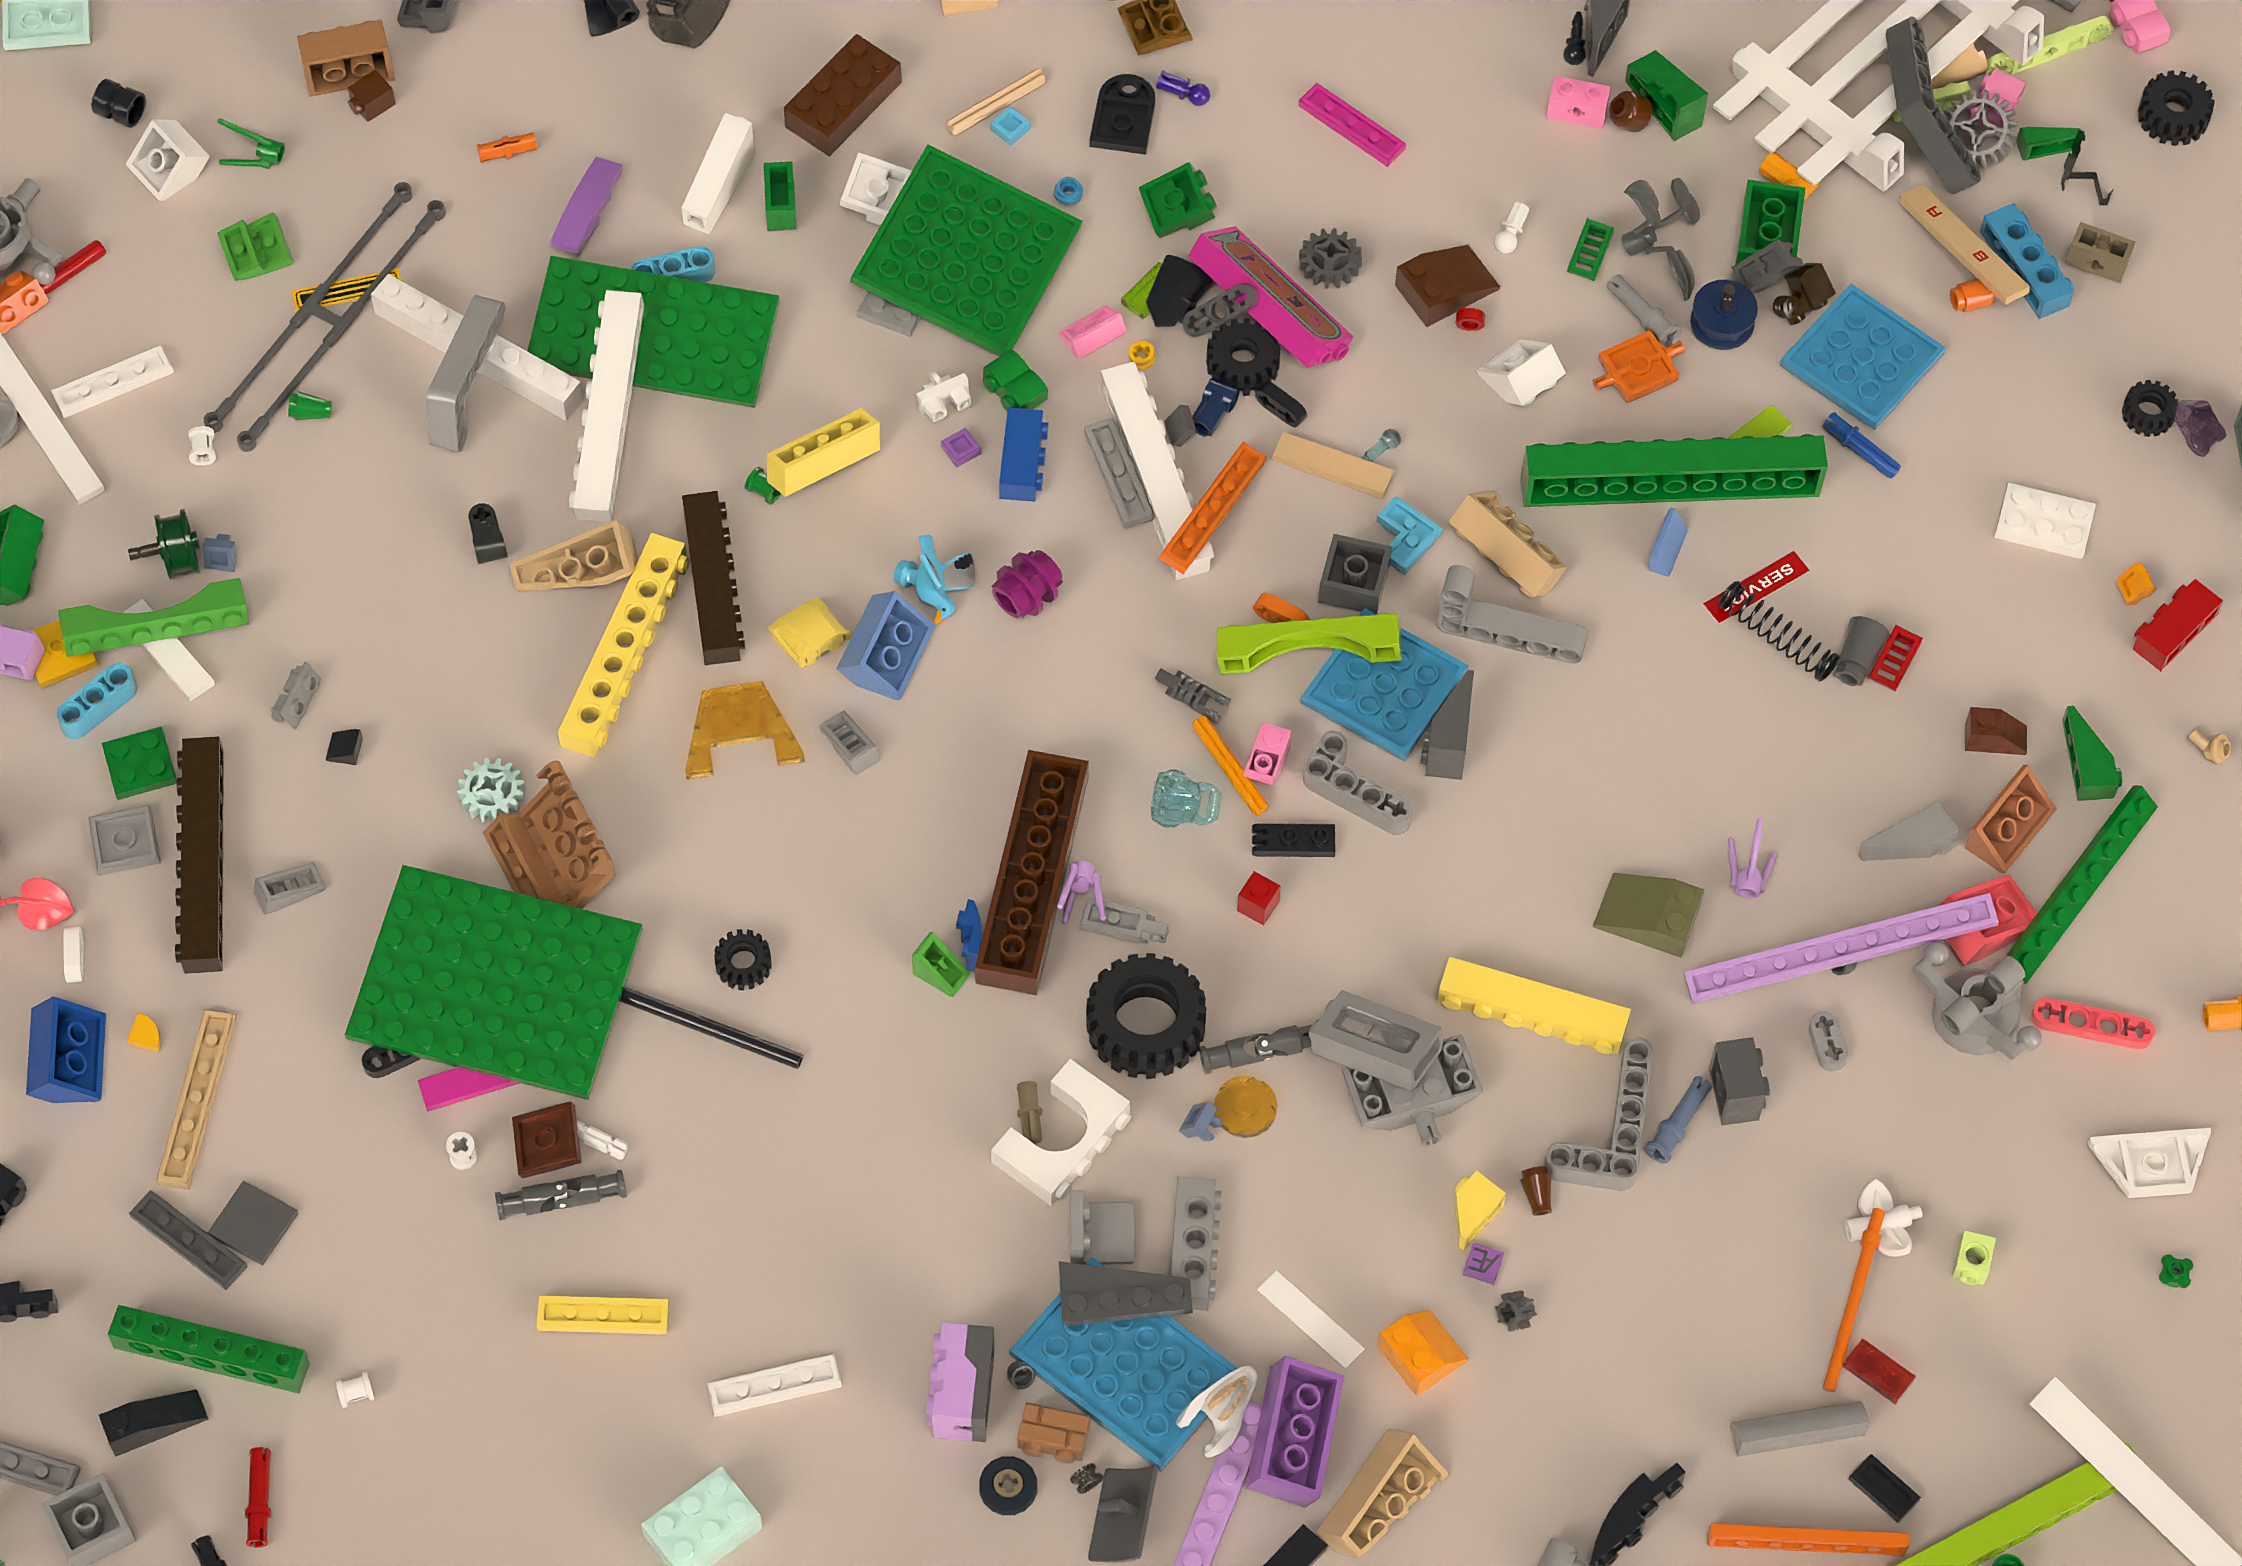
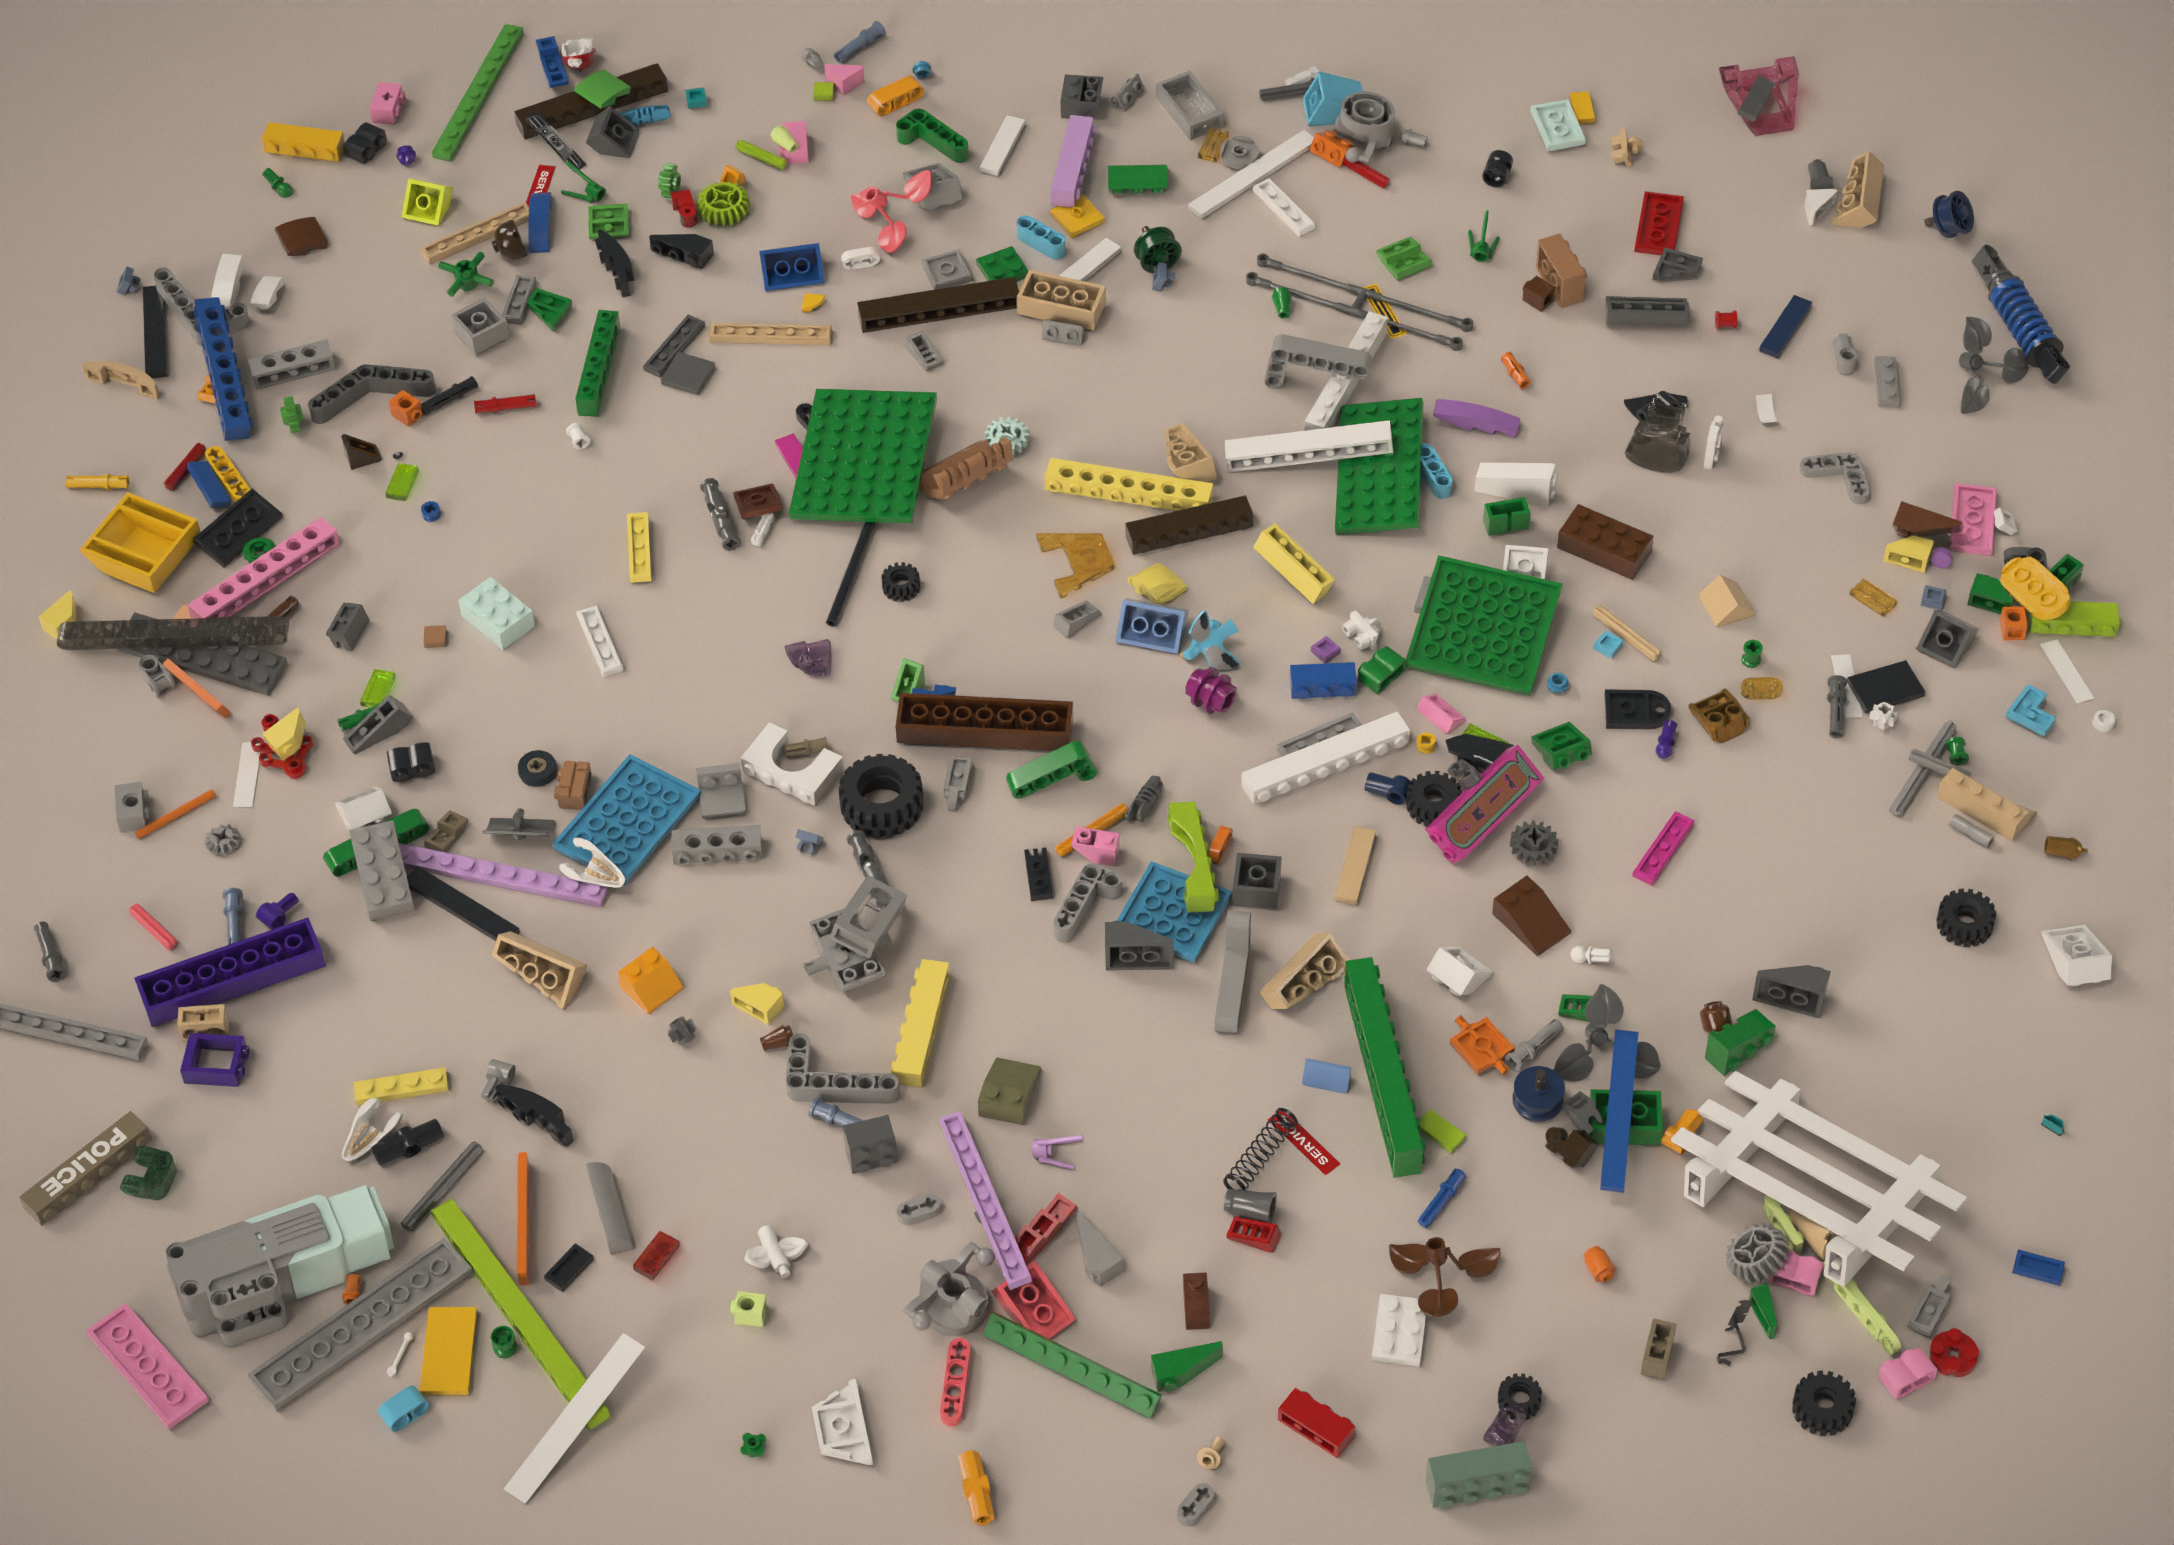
camera: 85 degrees right, 10 degrees down
(61, 1420) = (549, 307): none -> green wing
(151, 1420) = (550, 345): black slope -> none
(166, 158) = (1462, 201): white slope -> none
(201, 445) = (1248, 257): white bush -> none
(213, 608) = (1117, 278): bright green arch -> none
(241, 684) = (1061, 299): none -> tan brick
(345, 746) = (1029, 363): black slope -> none
(462, 1142) = (744, 460): white bush -> none
(486, 536) = (1199, 406): pearl dark grey piece -> none
(863, 1092) = (811, 658): none -> clear purple brick
(961, 1382) = (600, 728): lavender piece -> none
(1018, 1378) = (613, 762): dark grey hinge -> none
(1079, 880) = (984, 753): lavender plant -> none
(1086, 1479) = (542, 807): clear smoke bush -> none
(1112, 1294) = (669, 801): dark grey wing -> none
(1132, 799) = (1051, 769): none -> green beam
(1178, 800) = (1054, 799): clear light blue piece -> none
(1180, 425) = (1366, 768): dark grey tile -> none
(1212, 508) = (1295, 789): orange tile -> none
(1245, 1106) = (826, 867): clear yellow tile -> none
(1258, 898) = (984, 852): red brick -> none
(1281, 404) = (1398, 826): black beam -> none
(1294, 1432) = (578, 908): medium lavender brick -> none
(1311, 1319) = (672, 920): white sticker -> none
(1389, 440) = (1383, 896): clear light blue piece -> none
(1412, 531) = (1302, 918): medium azure plate -> none
(1470, 319) = (1499, 934): red tile -> none
(1483, 1263) = (720, 1013): medium lavender tile -> none
(1578, 102) = (1717, 980): bright pink brick -> none
(1777, 224) = (1619, 1111): none -> blue tile
(1862, 356) = (1524, 1193): dark azure plate -> none
(1868, 892) = (1044, 1227): none -> red slope
(1870, 1242) = (752, 1238): orange bar -> none
(1920, 111) = (1747, 1199): dark grey beam -> none
(1958, 423) = (1411, 1257): none -> reddish brown plant
(1964, 244) = (1642, 1250): tan tile -> none
(1998, 231) = (1647, 1290): dark azure brick -> none
(2011, 821) = (1119, 1313): nougat slope -> none
(2135, 584) = (1347, 1392): light orange tile -> none

